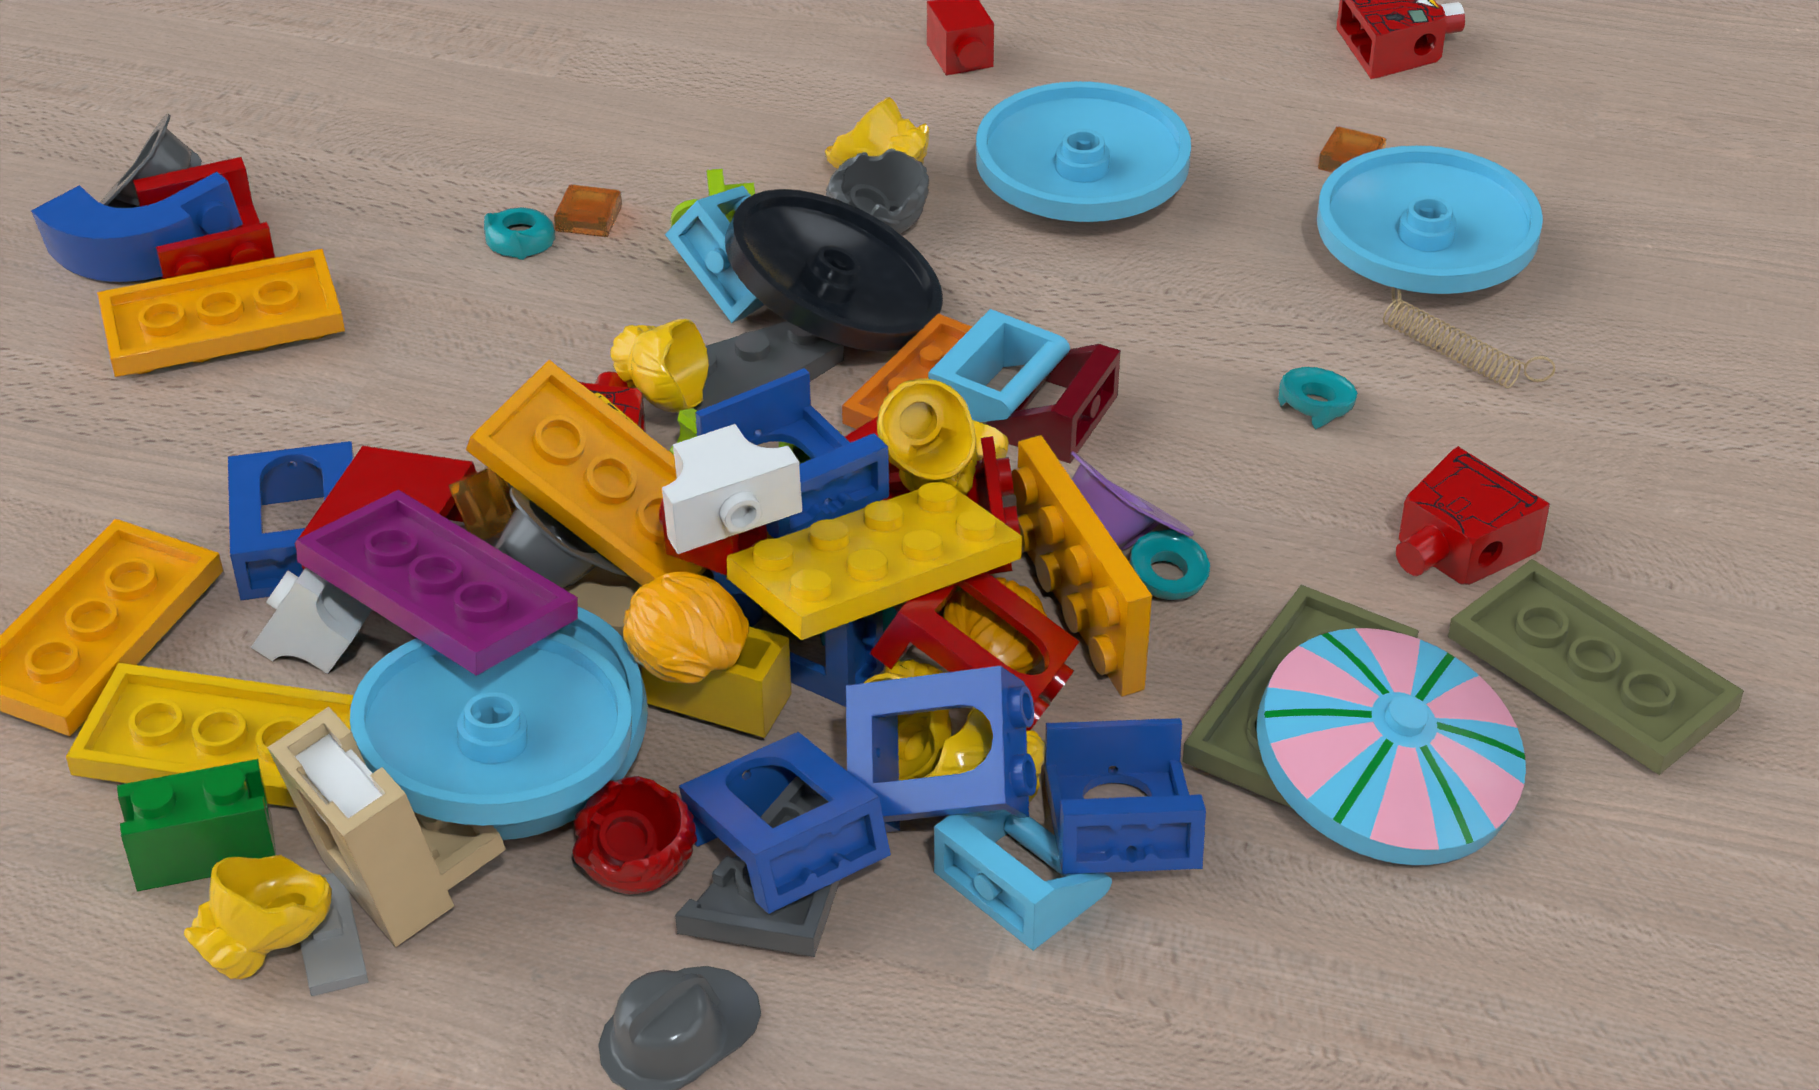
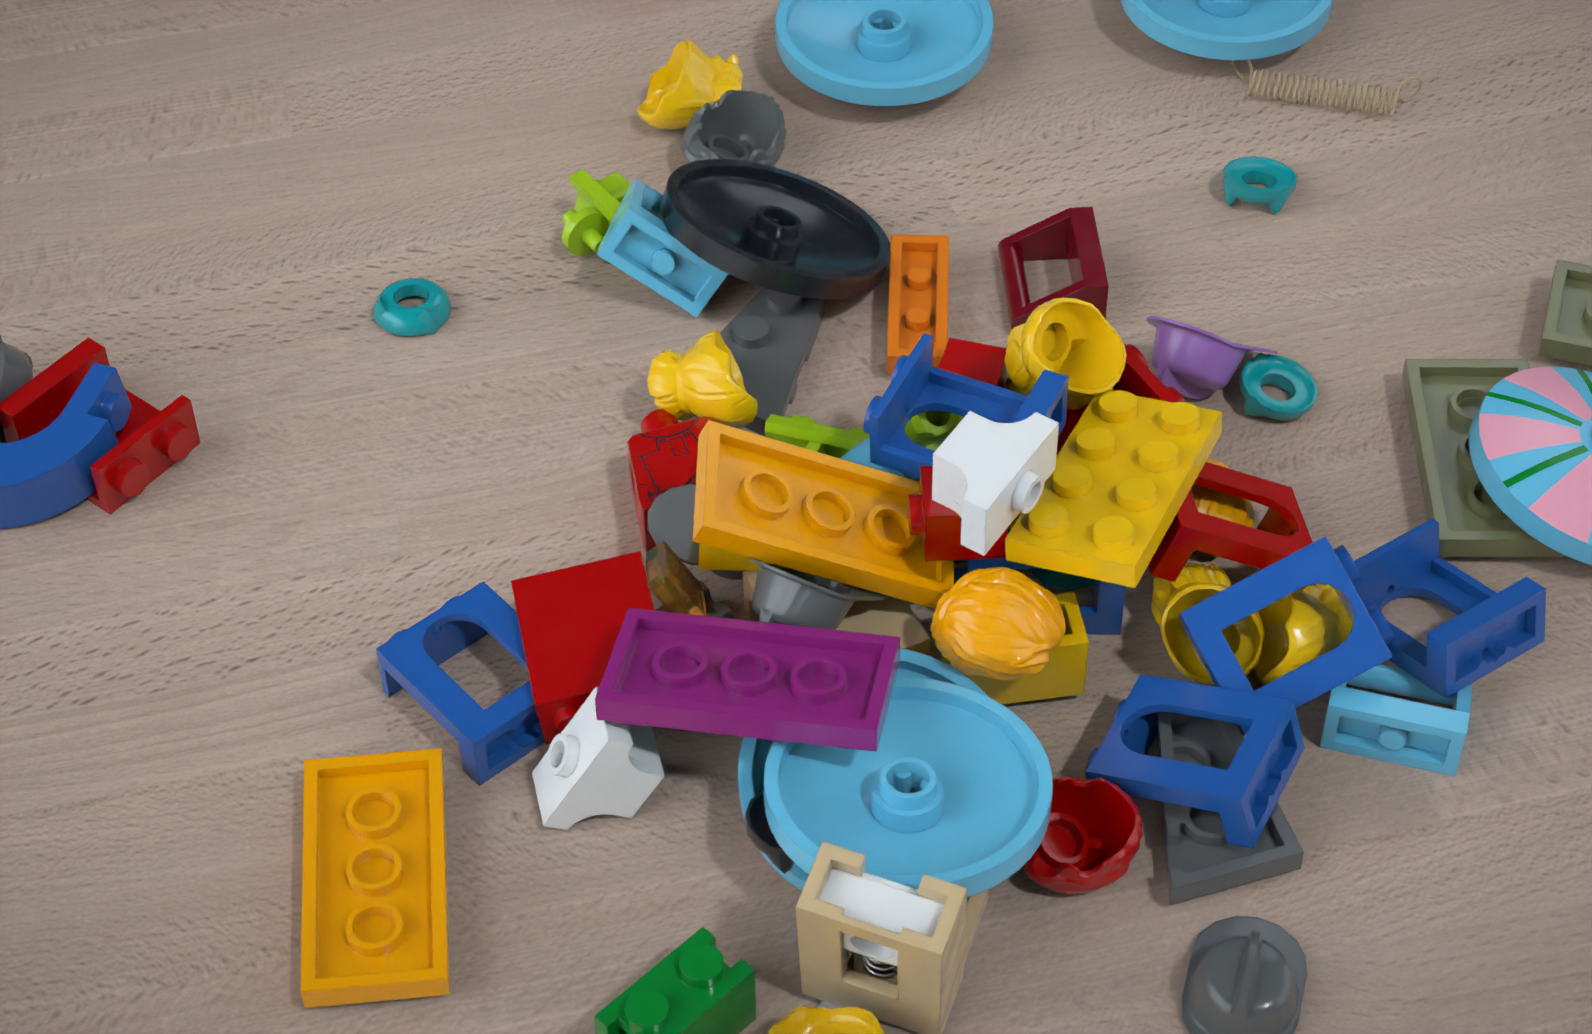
camera: 30 degrees left, 5 degrees up
(183, 722) = (601, 923): yellow plate -> none
(219, 312) = (195, 508): light orange plate -> none
(588, 210) = (461, 259): clear orange tile -> none
(987, 348) = (980, 235): medium azure tile -> none
(1082, 567) = (1265, 422): light orange plate -> none
(1469, 521) = (1477, 246): red torso -> none

